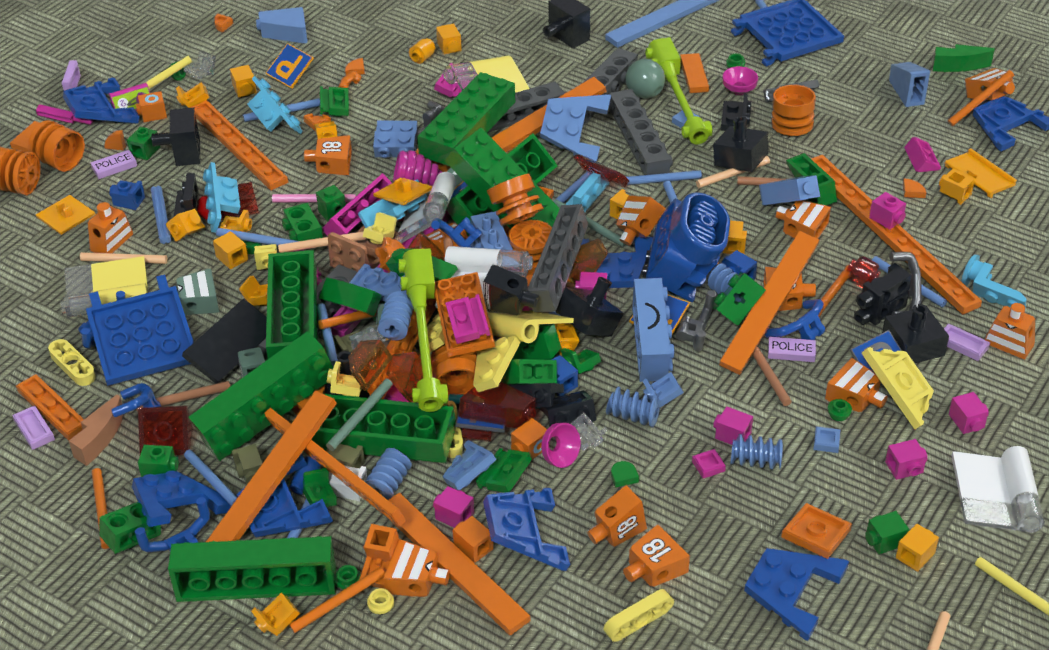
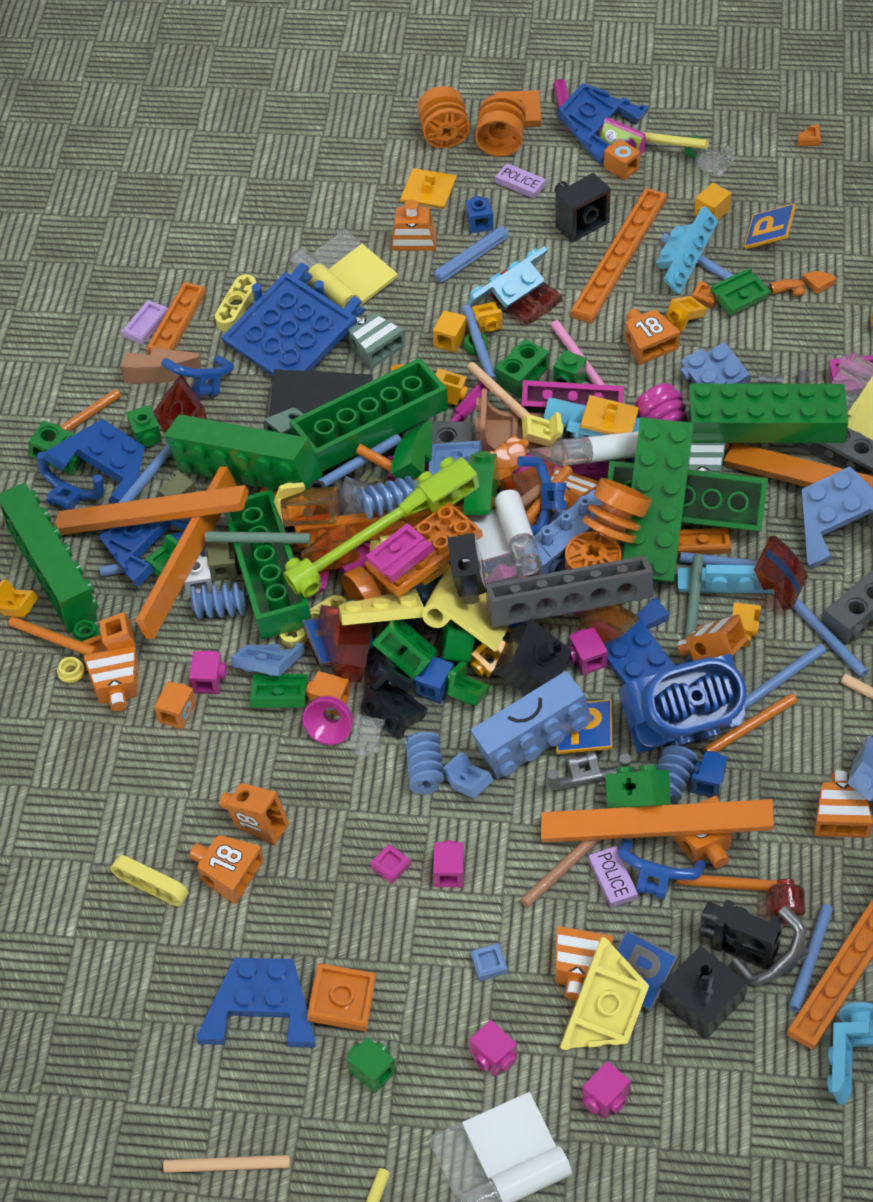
camera: 65 degrees right, 10 degrees up
(71, 75) = (619, 77): lavender tile -> none
(105, 257) = (394, 262): light nougat bar -> none
(115, 141) = (552, 163): orange tile -> none
(141, 143) = (556, 175): green brick -> none
(184, 224) = (462, 278): light orange bracket -> none
(188, 196) = (498, 259): black bracket -> none
(192, 394) = (242, 403): nougat bar -> none
(193, 96) = (660, 180): light orange bracket -> none
(261, 255) = (458, 360): light yellow bracket -> none
(283, 25) = (841, 186): medium blue slope -> none
(462, 569) = (141, 711): orange tile -> none
(514, 525) = (202, 724): blue wing -> none
(624, 474) = (332, 794): green tile -> none
(736, 238) = (762, 748): light orange brick -> none
(757, 451) = (420, 898): medium blue piece -> none
(839, 409) = (537, 964): green plate -> none
(917, 547) = (365, 1101): light orange brick -> none
(966, 342) = (737, 1051): lavender tile -> none
(1013, 331) = (771, 1091): orange torso -> none

